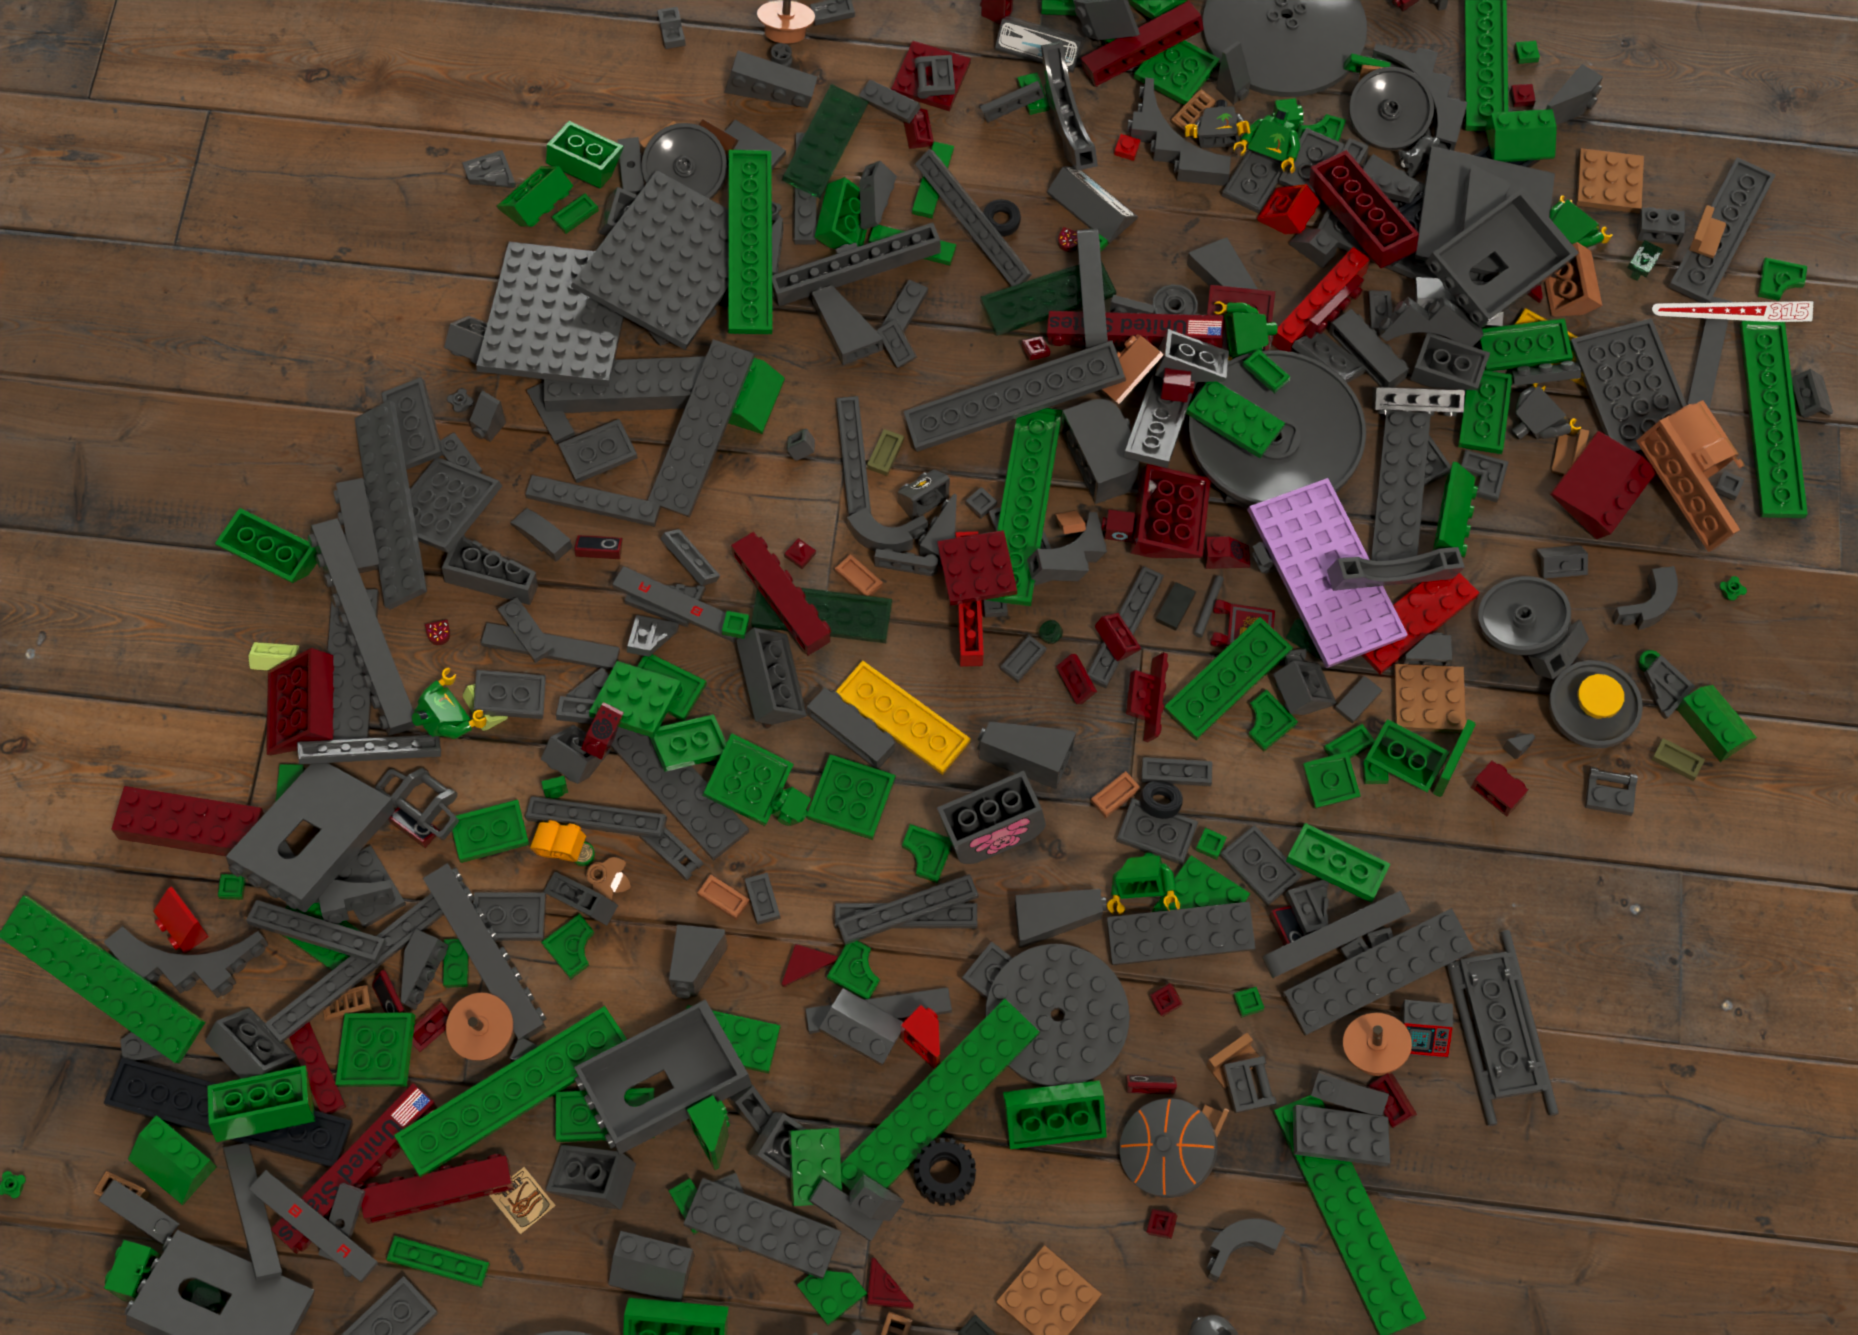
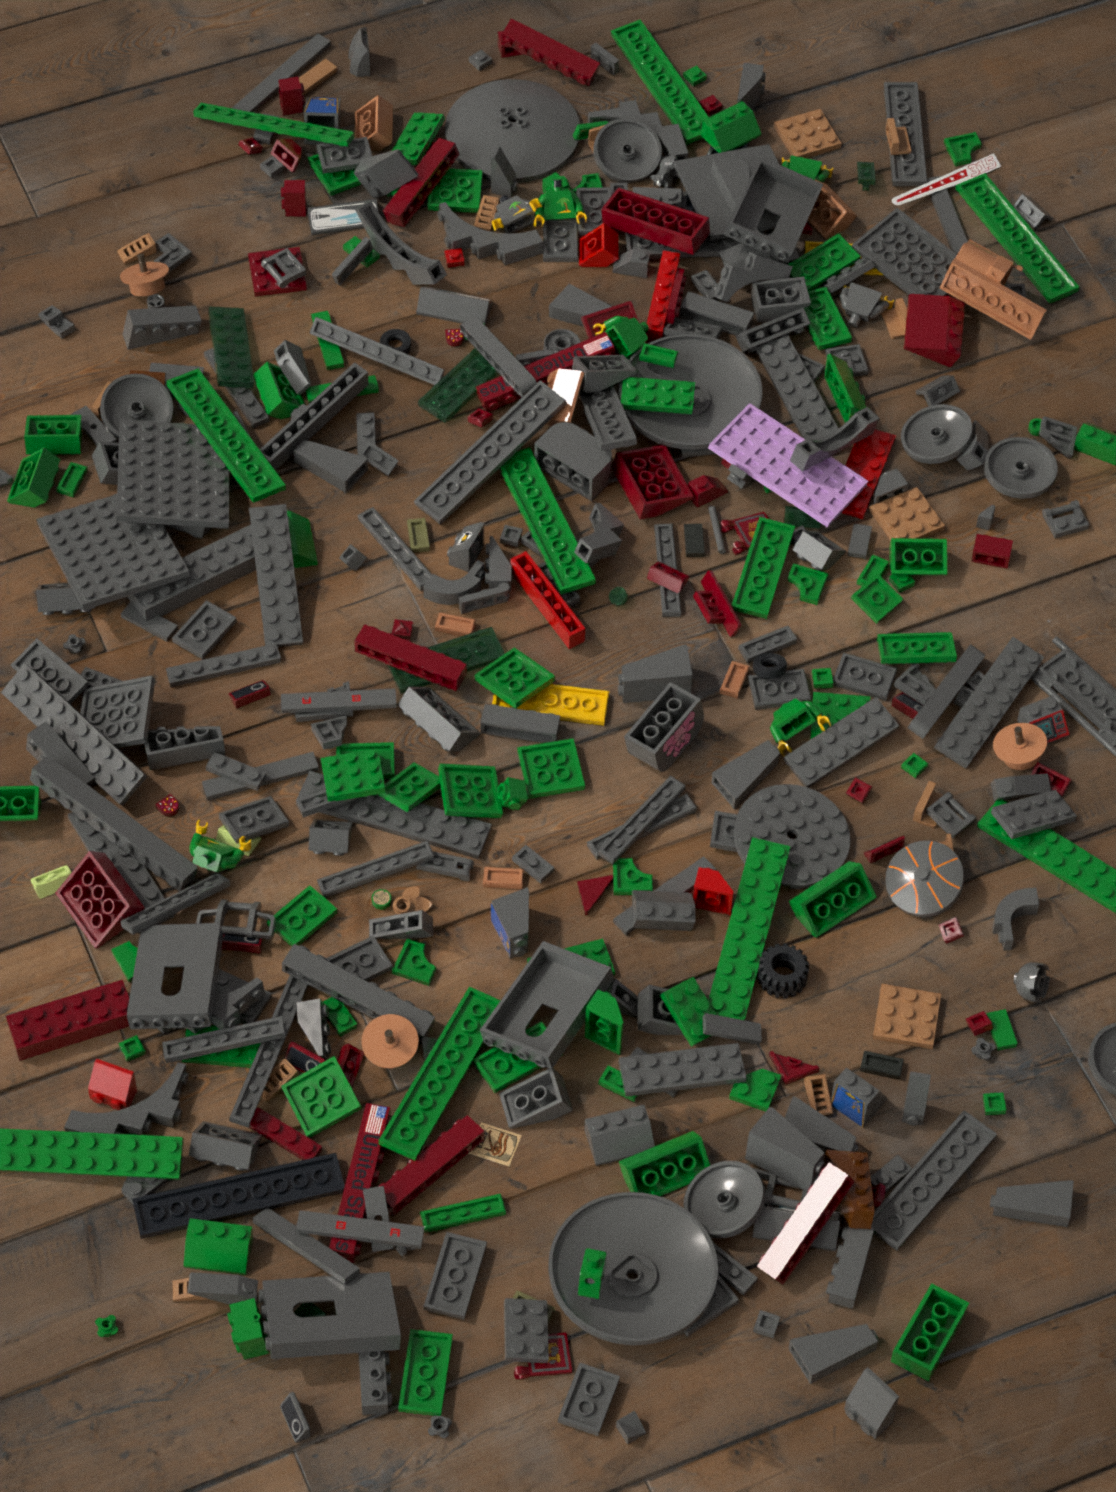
camera: 30 degrees left, 10 degrees down
(260, 1104) = (264, 1170): green slope -> none
(487, 417) = (106, 642): dark grey slope -> none
(542, 534) = (202, 703): dark grey slope -> none
(555, 787) = (331, 864): green plate -> none
(558, 841) = (359, 897): light orange brick -> none
(602, 731) = (346, 804): dark red slope -> none
(690, 557) = (324, 668): dark grey plate -> none
(735, 624) = (393, 691): green plate -> none
(874, 1200) = (747, 1010): dark grey slope -> none
(876, 672) = (514, 677): none -> green plate
(890, 101) = (260, 300): dark grey plate -> none
(919, 131) = (291, 311): dark red slope -> none
(929, 851) = (629, 777): green tile -> none
(977, 567) = (542, 573): dark red plate -> none
(1023, 658) = (610, 623): dark grey tile -> none
(1070, 522) = (585, 517): nougat tile -> none
(1076, 679) = (658, 617): dark red plate -> none
(1118, 525) = (620, 504): dark red brick -> none
(1177, 385) = (604, 390): dark red brick -> none
(1454, 758) = (953, 553): green tile -> none
(1600, 696) = (1022, 459): yellow tile -> none
(1660, 225) = (861, 148): dark grey brick -> none
(1663, 589) = (1017, 378): dark grey arch -> none
(1678, 759) = (1096, 479): olive tile -> none
(1732, 594) = (1061, 356): green plate -> none

